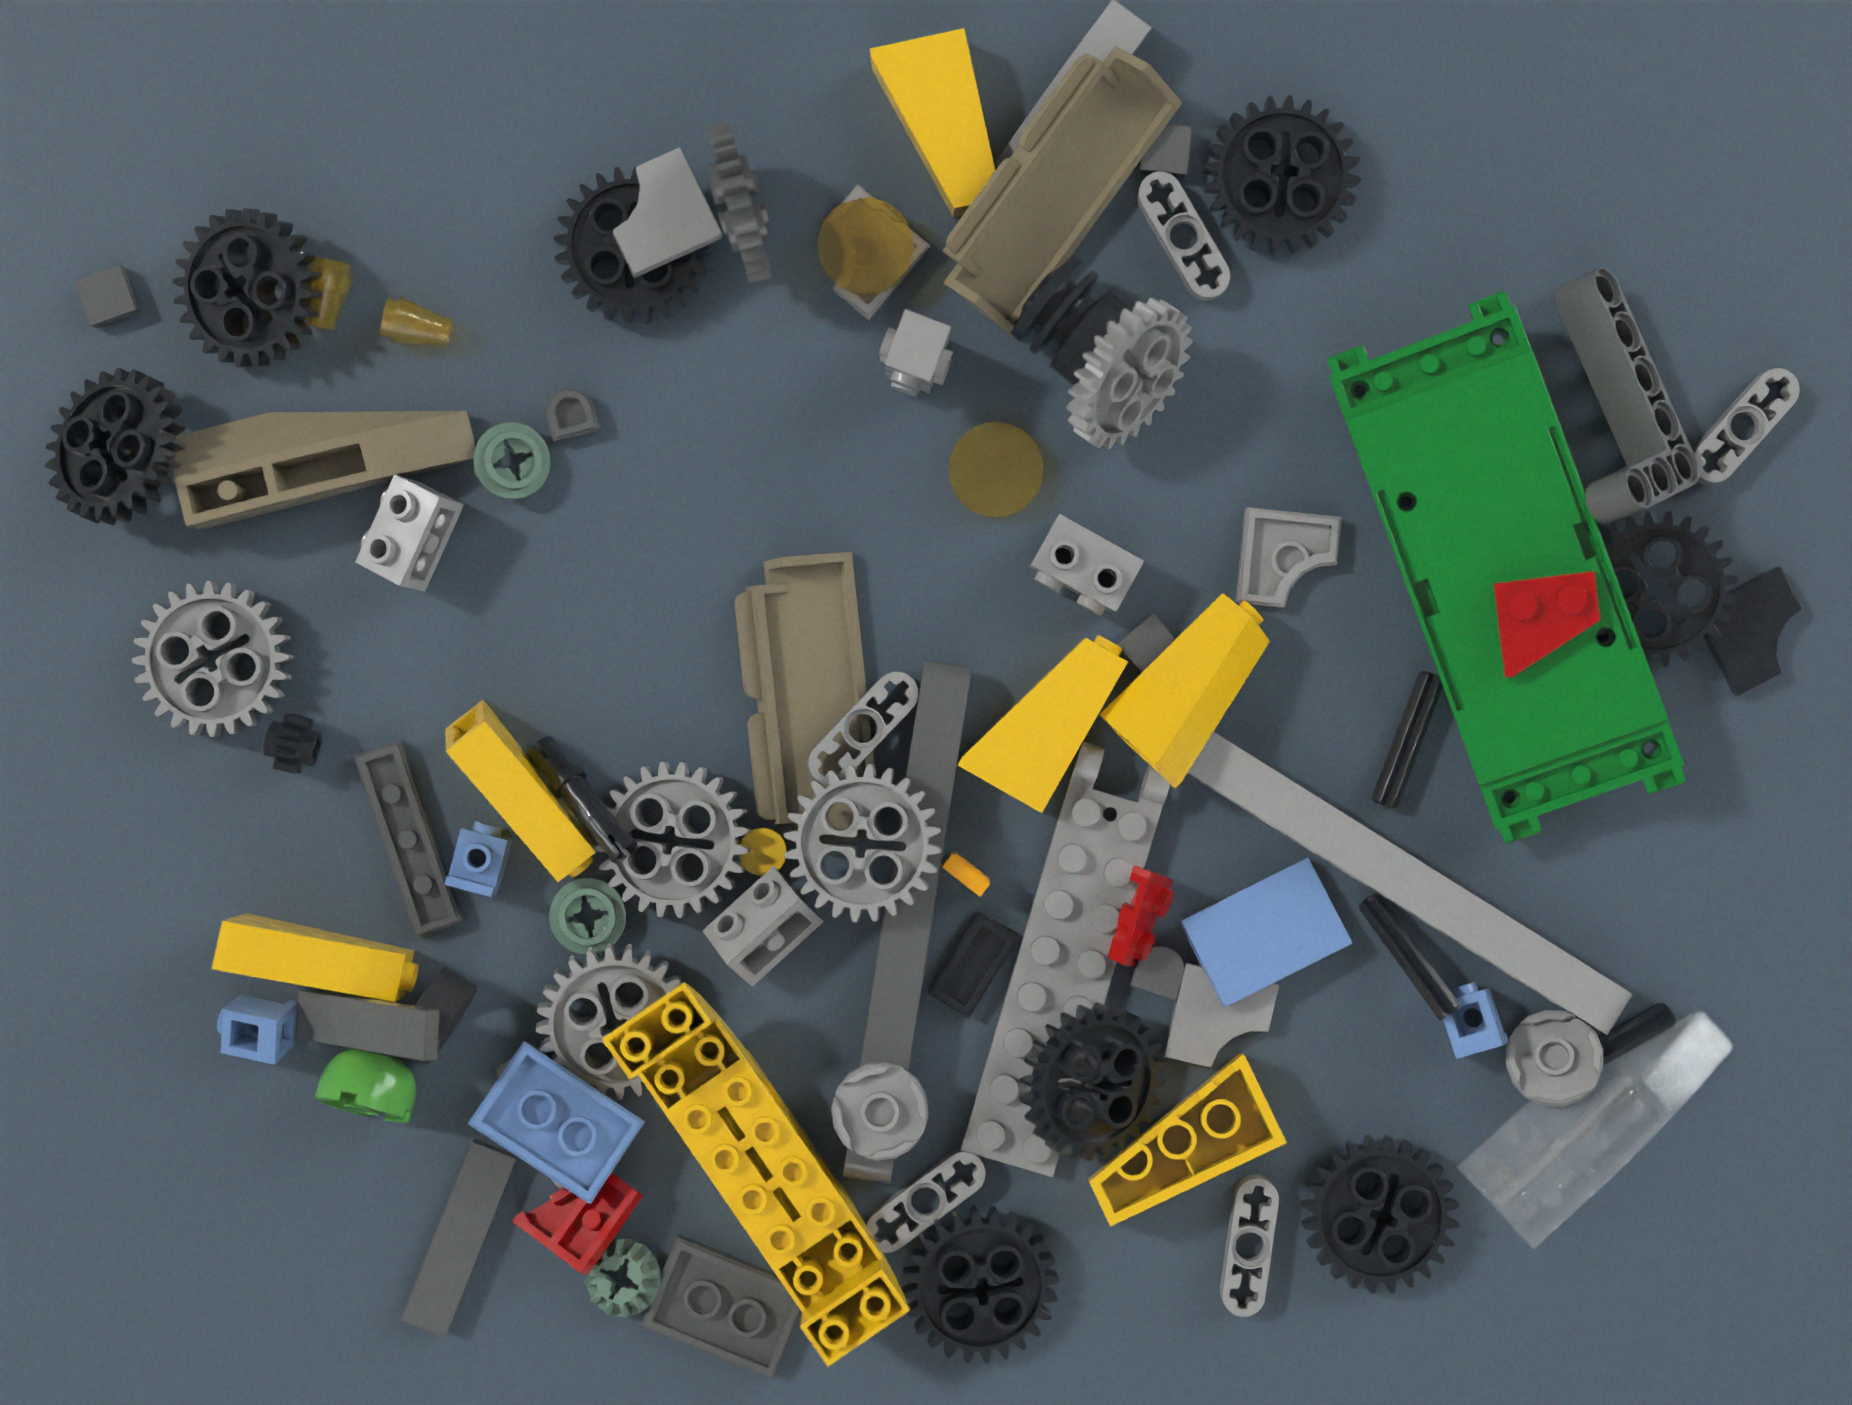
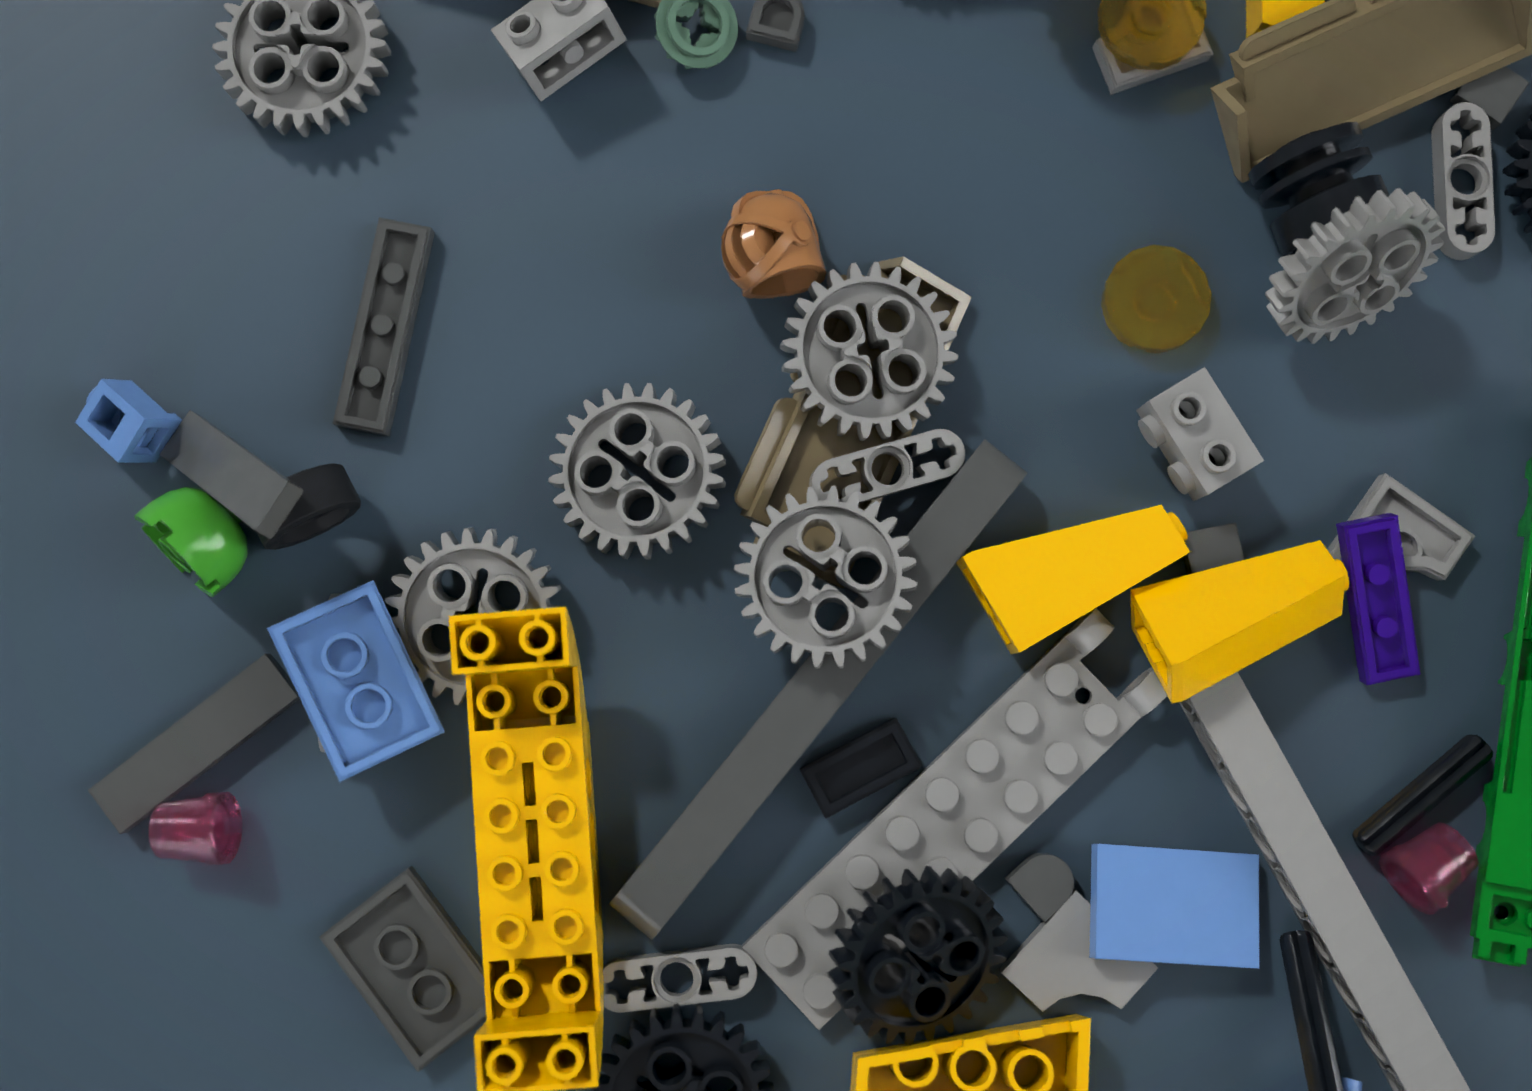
camera: 25 degrees right, 5 degrees down
(292, 743) = (328, 169): black gear -> none
(314, 958) = (218, 380): yellow slope -> none
(487, 878) = (439, 402): medium blue brick -> none
(501, 1300) = (197, 829): none -> clear pink piece
(519, 791) = (515, 340): yellow slope -> none
(570, 784) = (570, 360): black pin -> none
(570, 901) = (500, 476): sand green gear -> none
(578, 1229) = (318, 806): red wing -> none
(642, 1270) = (354, 881): sand green gear -> none
(673, 602) = (772, 245): none -> medium nougat helmet
(762, 922) = (675, 605): light grey brick -> none
(766, 851) = (721, 538): yellow tile -> none
(829, 617) = (917, 345): none -> light grey gear
(880, 1110) = (685, 859): light grey tile -> none
(916, 353) = (1149, 135): light grey brick -> none
(966, 873) = (907, 671): light orange tile -> none
(1136, 920) = (1079, 805): red wing -> none
(1292, 610) = (1378, 598): none -> dark purple tile
(1439, 793) = (1429, 867): none -> clear pink piece

